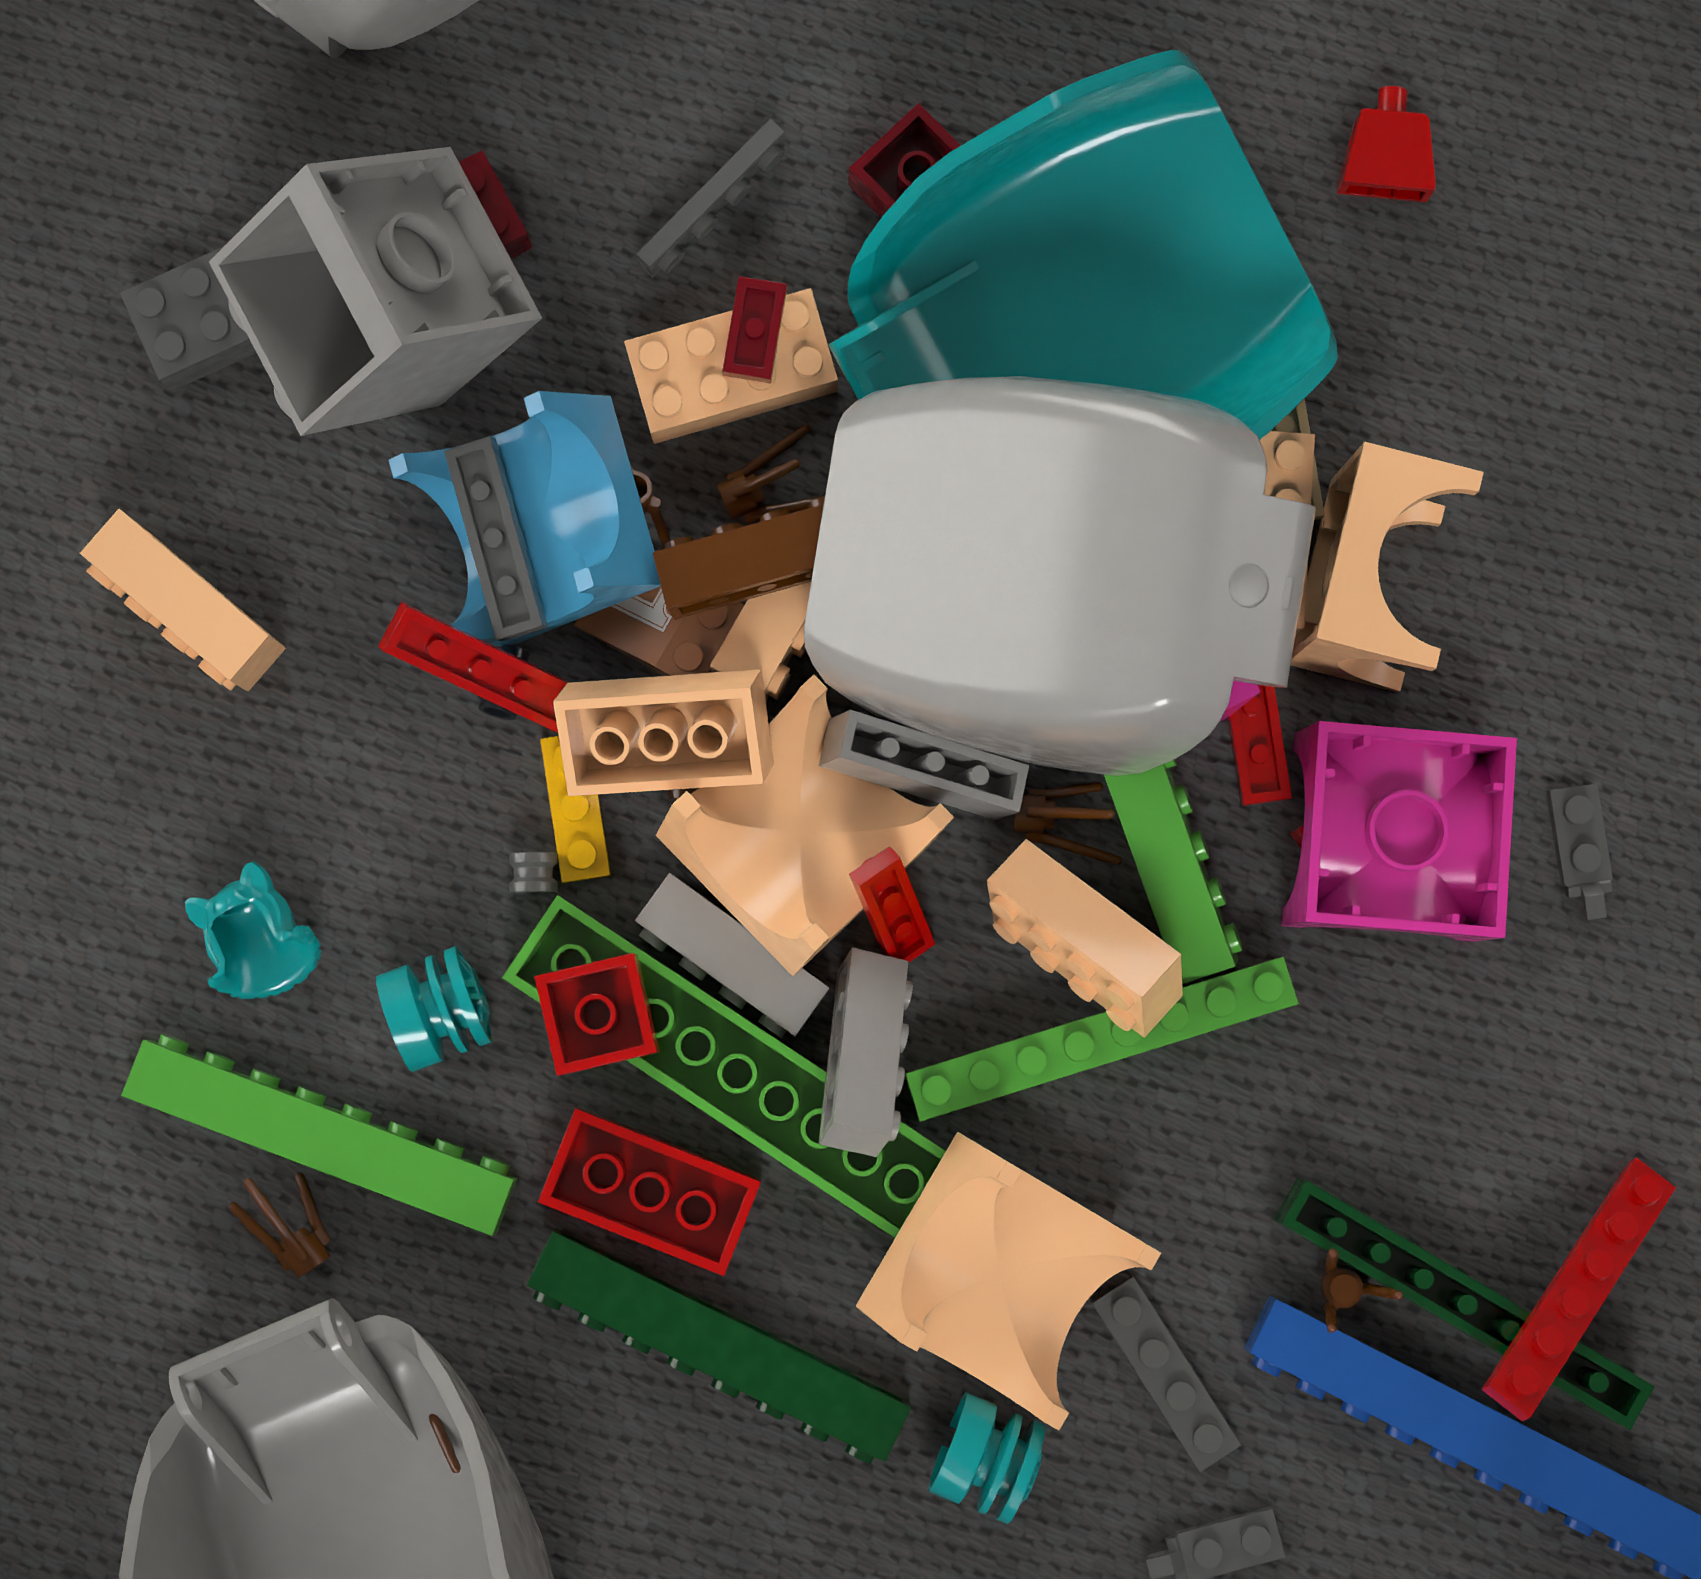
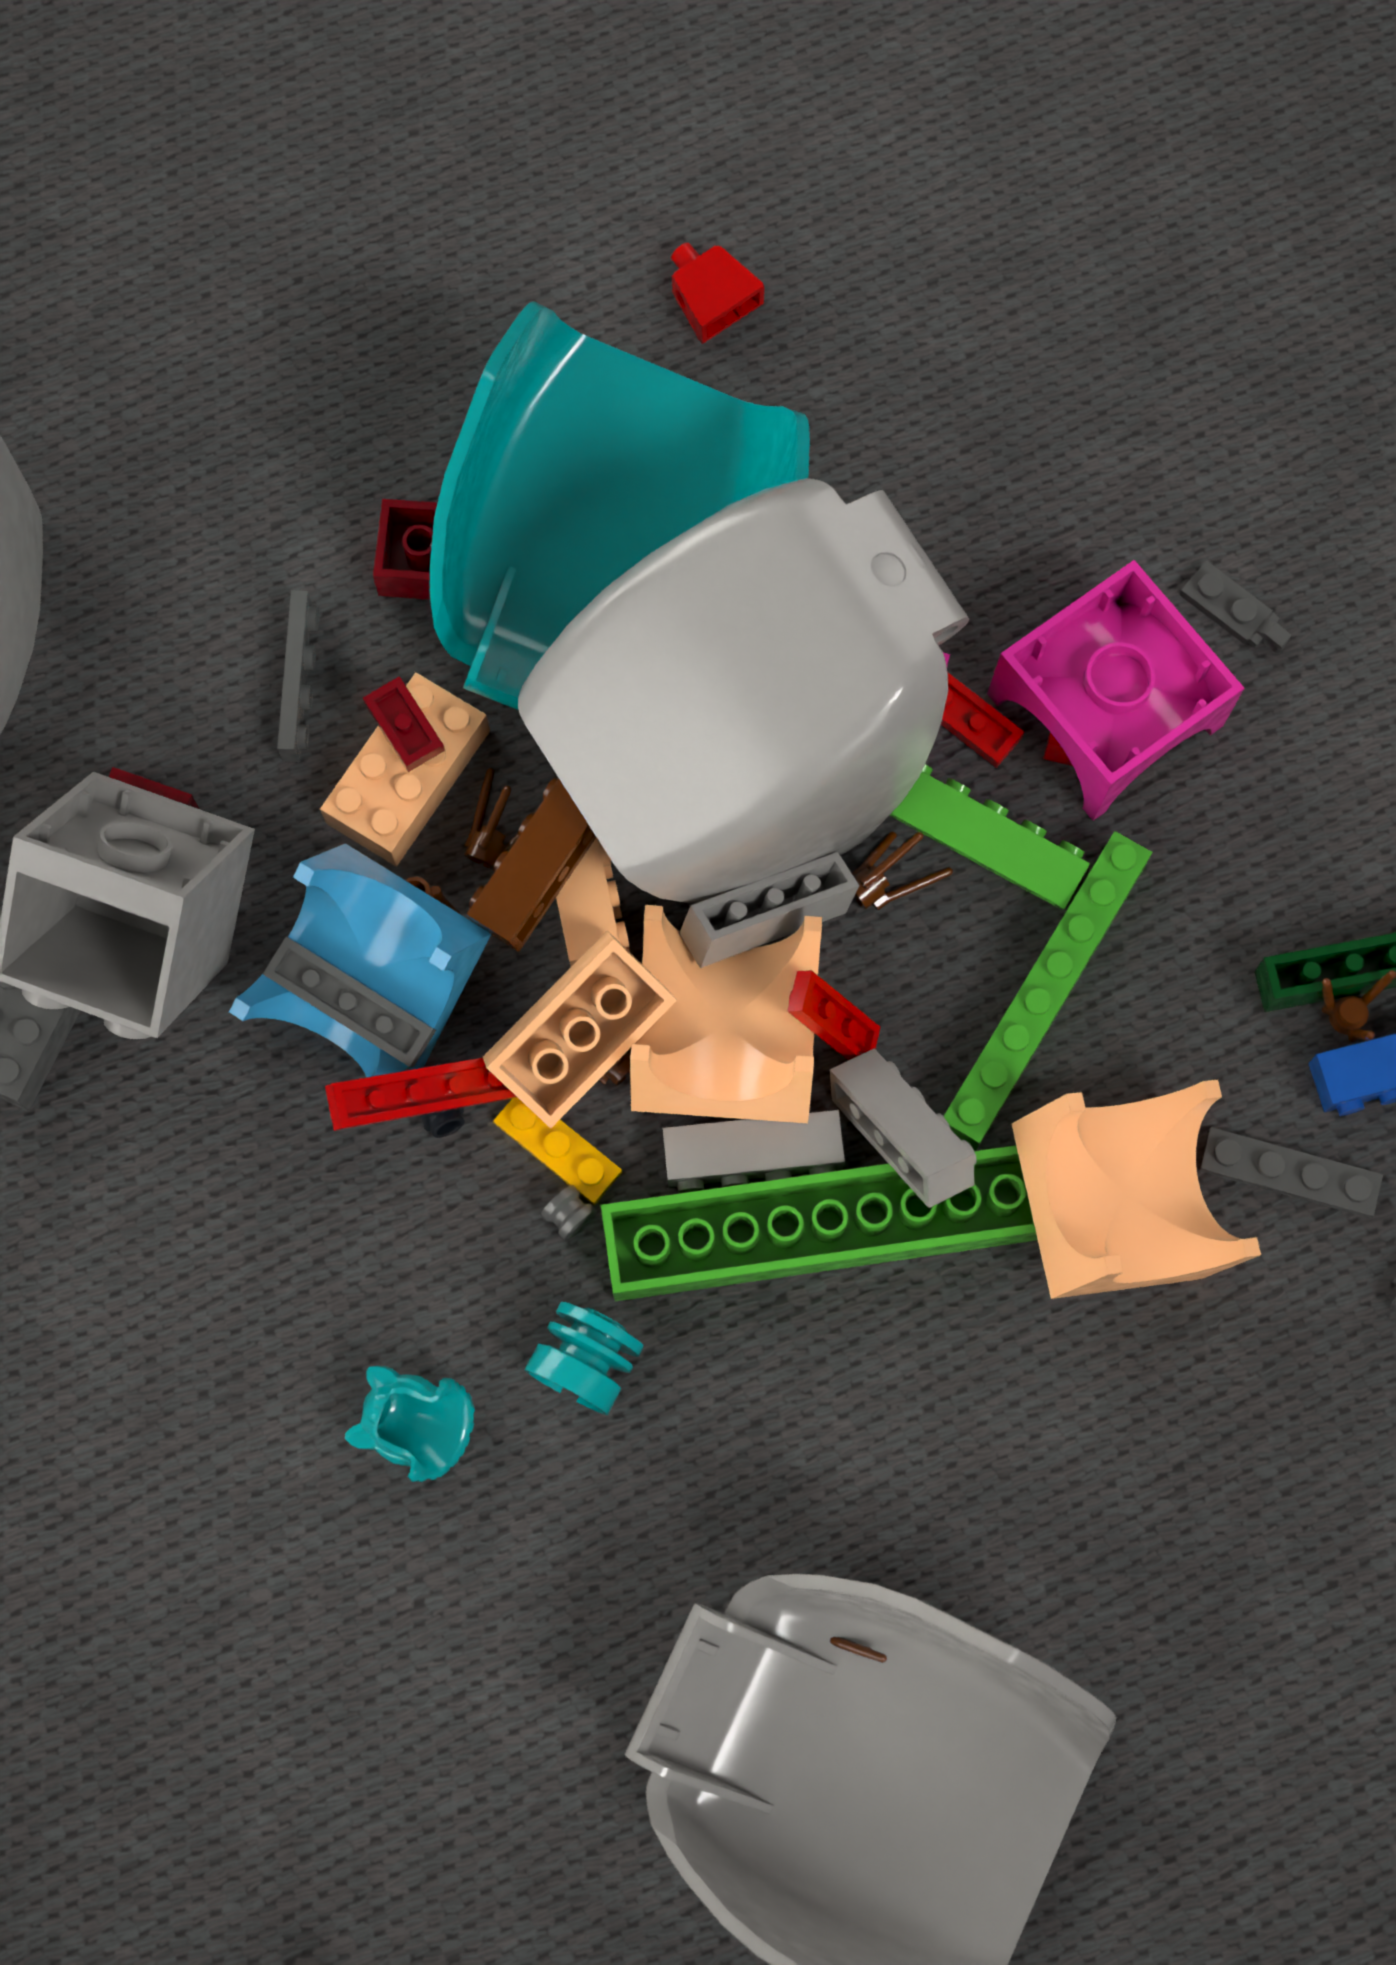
camera: 35 degrees left, 10 degrees down
(175, 595) = (163, 1235): light nougat brick -> none
(297, 1250) = (636, 1610): reddish brown plant -> none
(319, 1135) = (580, 1519): bright green brick -> none
(596, 1014) = (702, 1252): red brick -> none
(650, 1191) = (842, 1351): red brick -> none
(652, 637) = (512, 981): nougat slope -> none
(719, 1345) = (982, 1417): dark green brick -> none
(988, 1458) = (1237, 1323): teal wheel -> none
(1085, 939) = (978, 925): light nougat brick -> none
(1345, 612) = (965, 560): light nougat piece -> none

